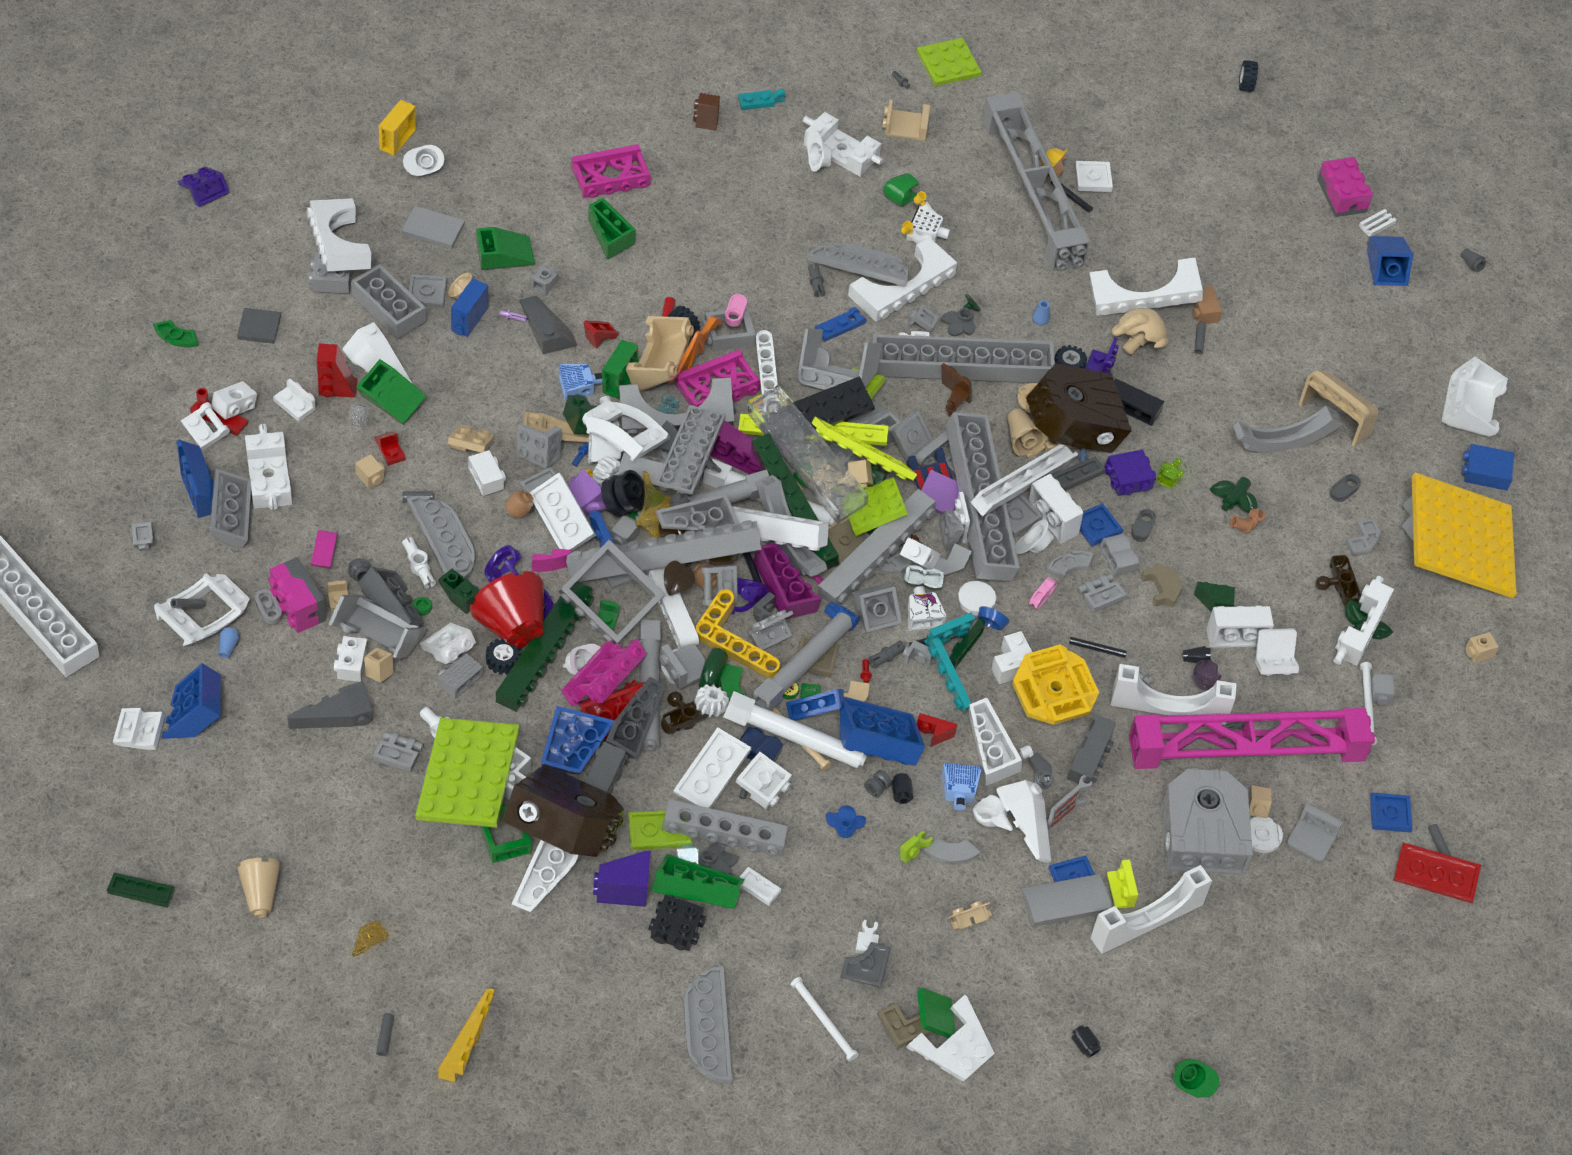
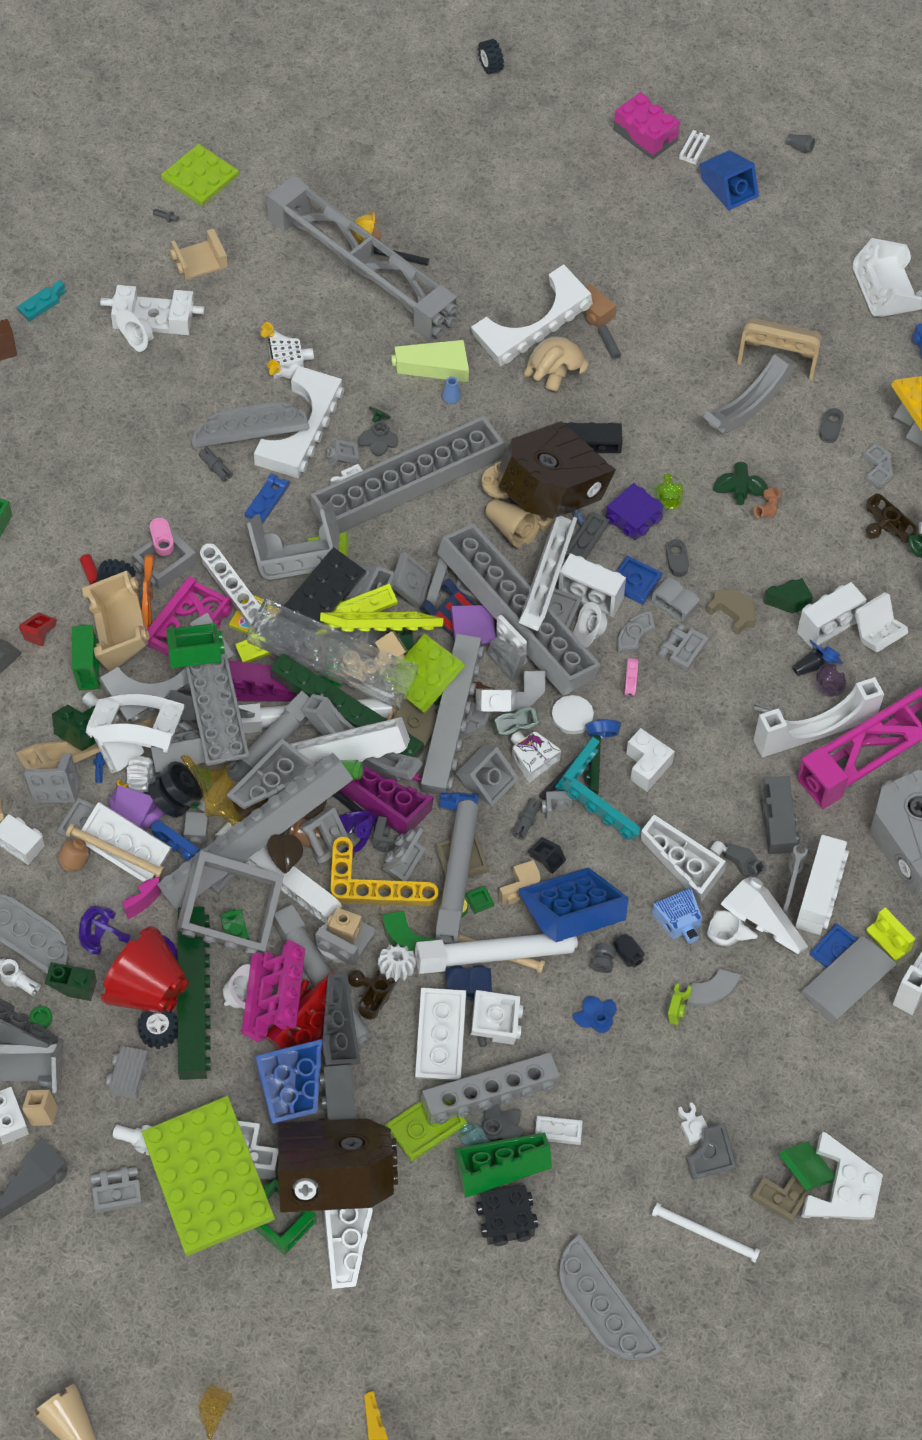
camera: 25 degrees left, 5 degrees up
(449, 643) = (95, 1043): white plate -> none
(528, 484) = (73, 831): none -> tan bar
(577, 379) = (47, 691): light blue torso -> none
(623, 880) = (432, 1201): dark purple slope -> none
(668, 405) = (154, 671): clear light blue bracket -> none
(689, 654) = (345, 925): none -> tan brick
(703, 395) = (195, 645): none -> green window
(713, 668) = (377, 929): dark green cylinder -> none
(768, 545) = (354, 768): none -> bright green cone
(815, 704) = (497, 910): blue slope -> none
(865, 675) = (519, 851): red piece -> none
(886, 687) = (548, 854): none -> black bracket
(899, 189) = (238, 329): green piece -> none
(941, 729) = (625, 868): red slope -> none
(959, 386) = (425, 505): reddish brown plate -> none
(978, 912) = (776, 1038): tan hinge -> none
(1042, 283) = (433, 360): none -> yellowish green slope
(1060, 670) = (711, 749): yellow piece -> none
(1071, 356) = (508, 424): black wheel -> none
(1090, 818) = (823, 885): none -> white piece
(1093, 176) = (410, 226): white plate -> none
(1098, 647) = (713, 704): black bar -> none
(1101, 361) = (538, 413): dark purple bracket -> none
(1217, 654) = (828, 653): none -> blue plate

